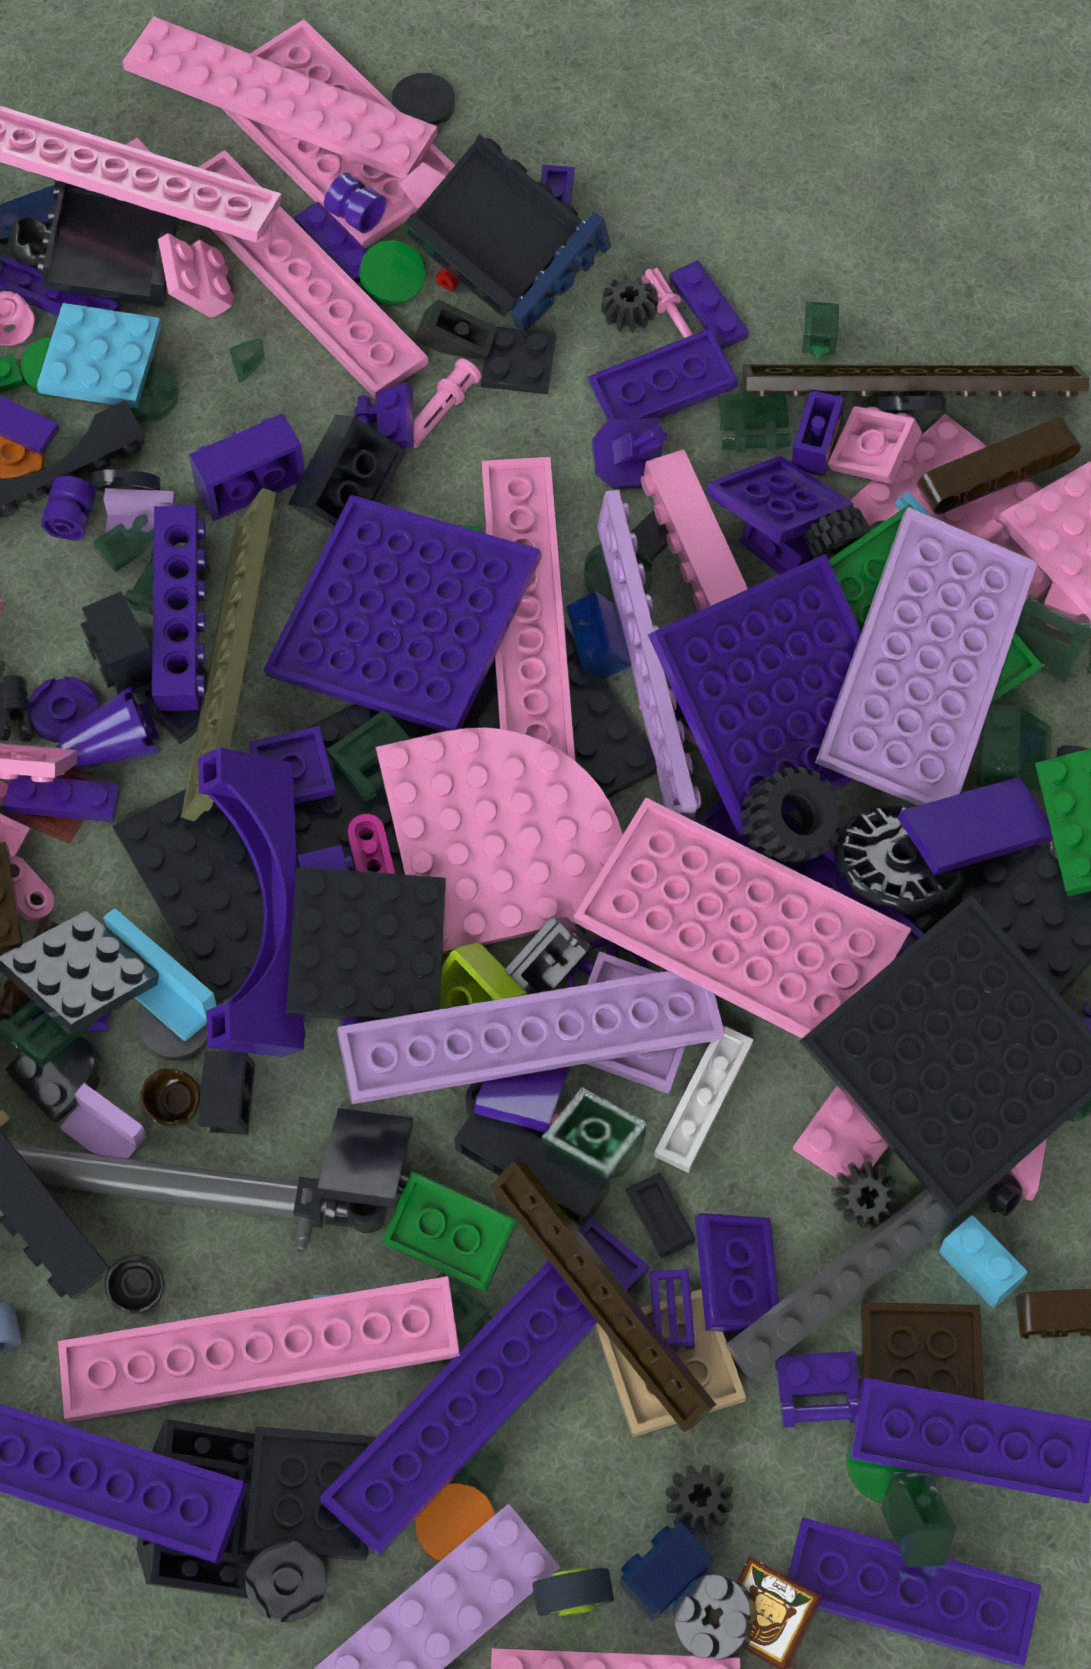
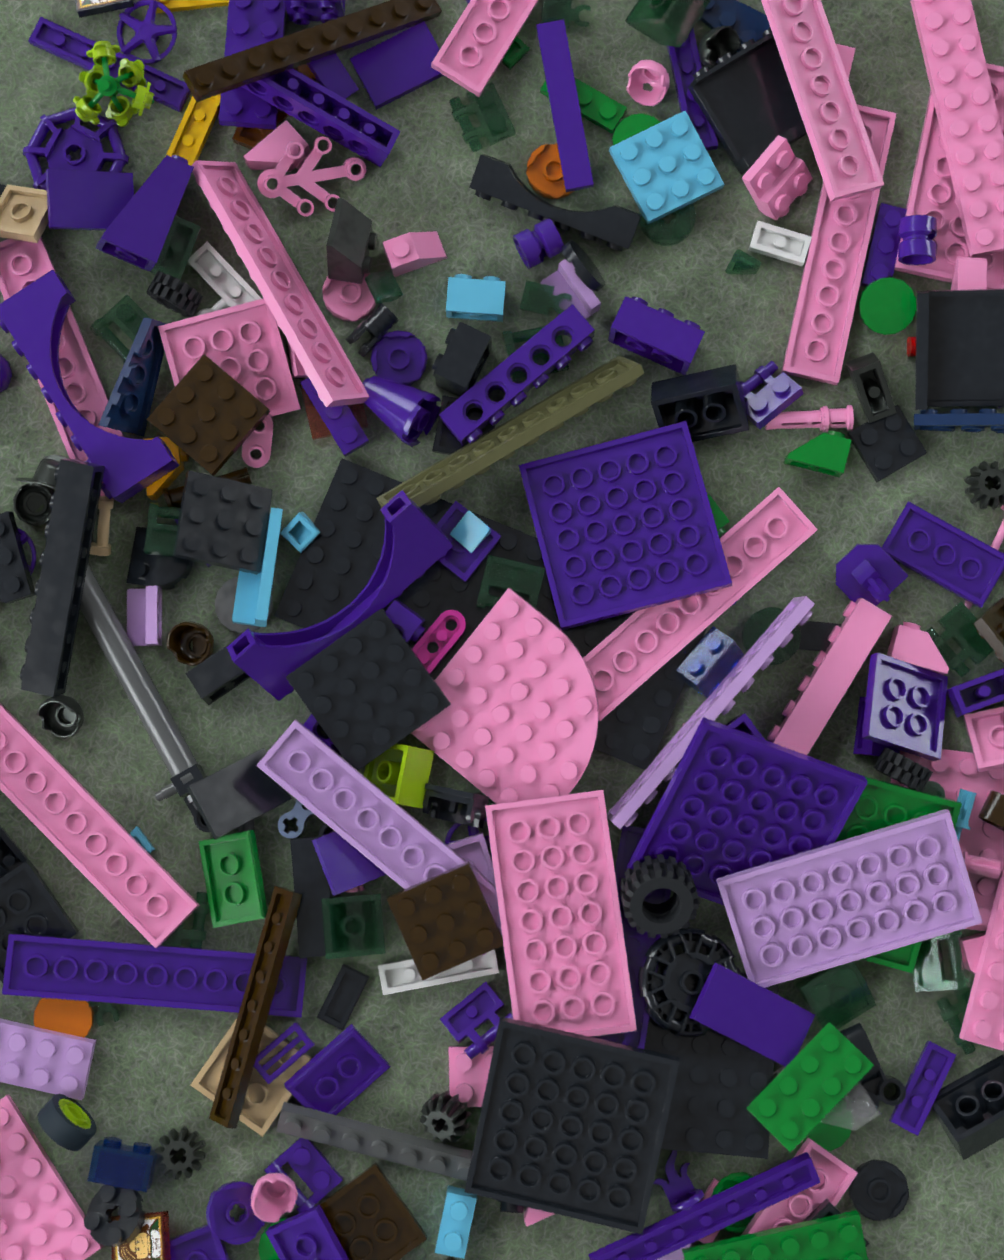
camera: 50 degrees right, 20 degrees up
(61, 600) = (475, 298): none -> medium azure brick
(152, 912) = (300, 531): none -> medium azure slope
(255, 317) = (780, 243): none -> white plate
(291, 742) = (470, 531): none -> medium azure slope
(437, 1117) = (298, 812): none -> sand blue axle
(483, 414) = (822, 454): none -> green slope
(660, 1040) = (445, 921): none -> dark brown plate
(732, 455) = (916, 647): none -> bright pink slope
(775, 1093) = (473, 1013): none -> dark purple plate
(805, 1502) = (219, 1218): none -> dark purple plate
(818, 1423) = (273, 1197): none -> bright pink hair

